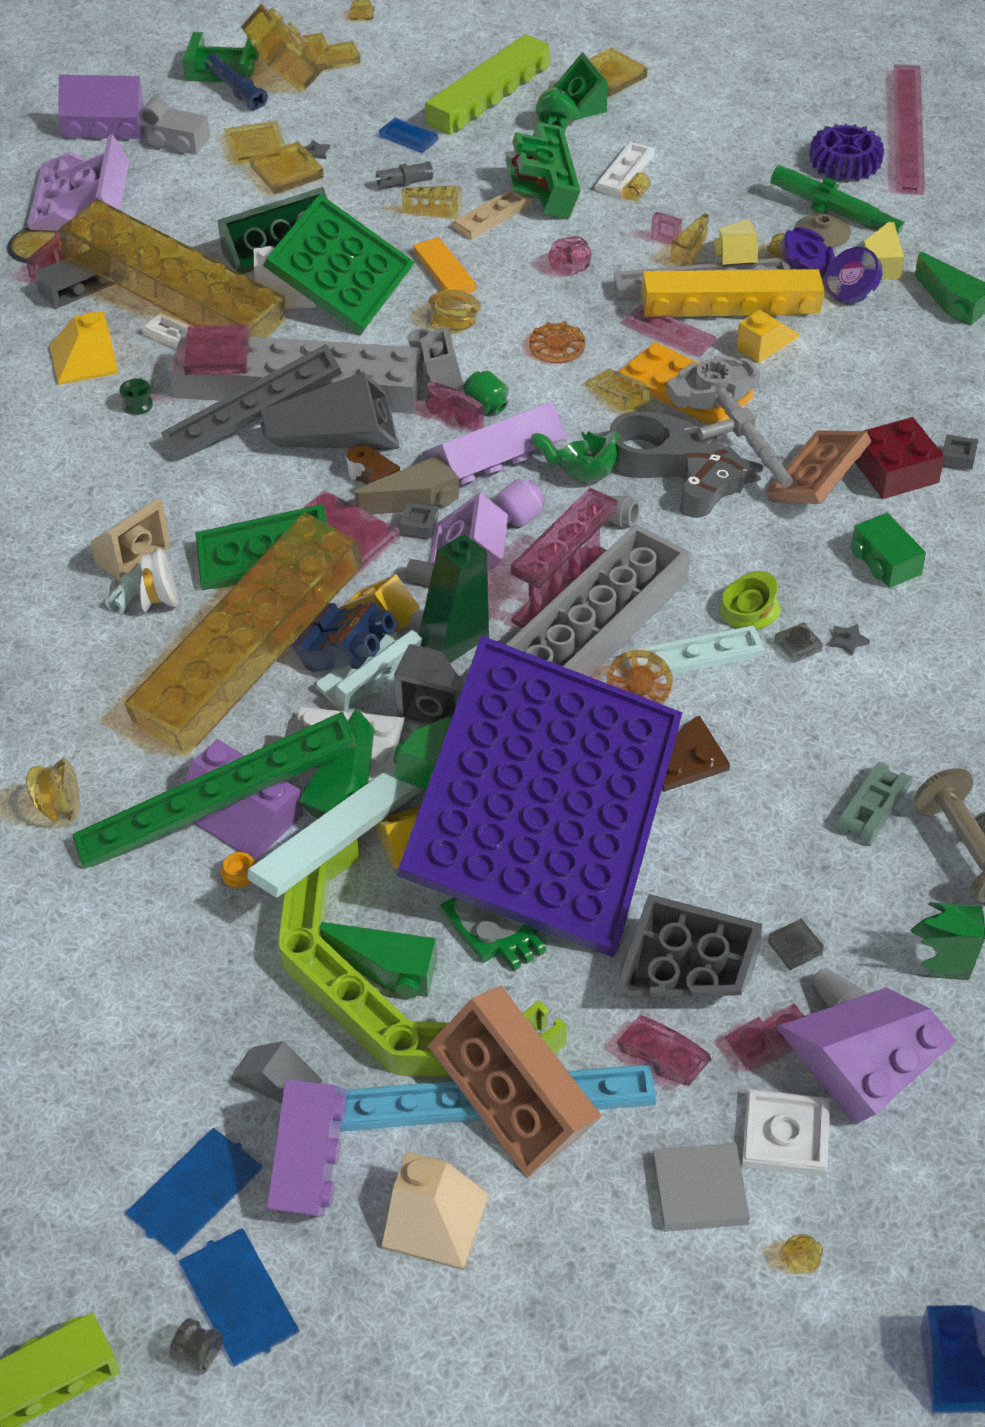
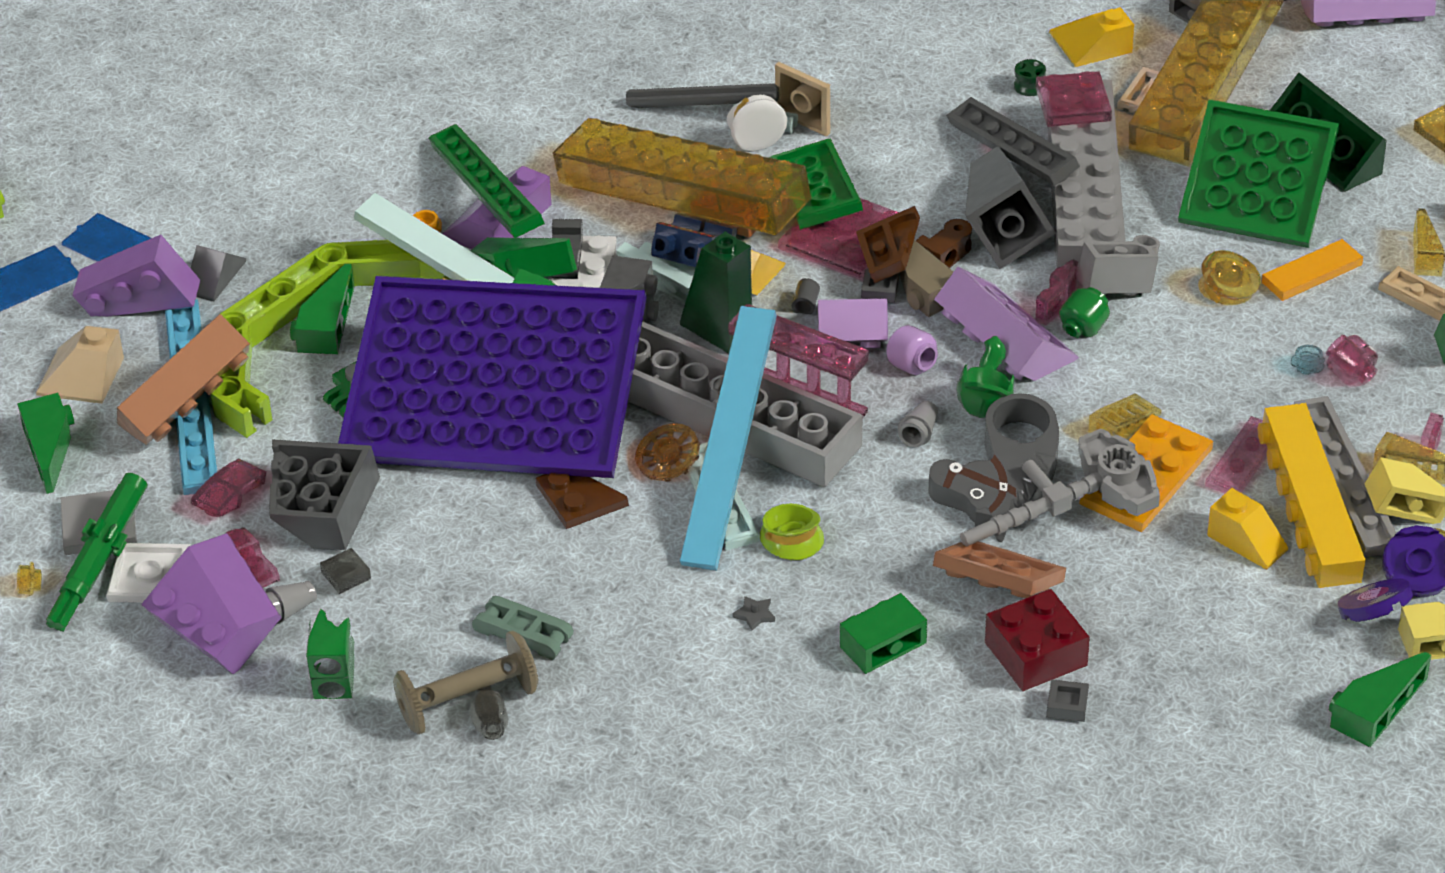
camera: 85 degrees right, 5 degrees down
(55, 790) = (493, 102): clear yellow piece -> none
(96, 622) = (698, 95): none -> dark grey axle
(387, 494) = (889, 243): none -> reddish brown wing
(557, 342) = (1197, 366): clear orange wheel -> none
(560, 280) = (1308, 359): none -> clear light blue plate
(560, 1241) = (48, 434): none -> green slope
(665, 609) = (728, 438): none -> medium azure tile
(760, 1163) = (100, 541): none -> green piece
(798, 642) = (742, 572): clear smoke plate -> none

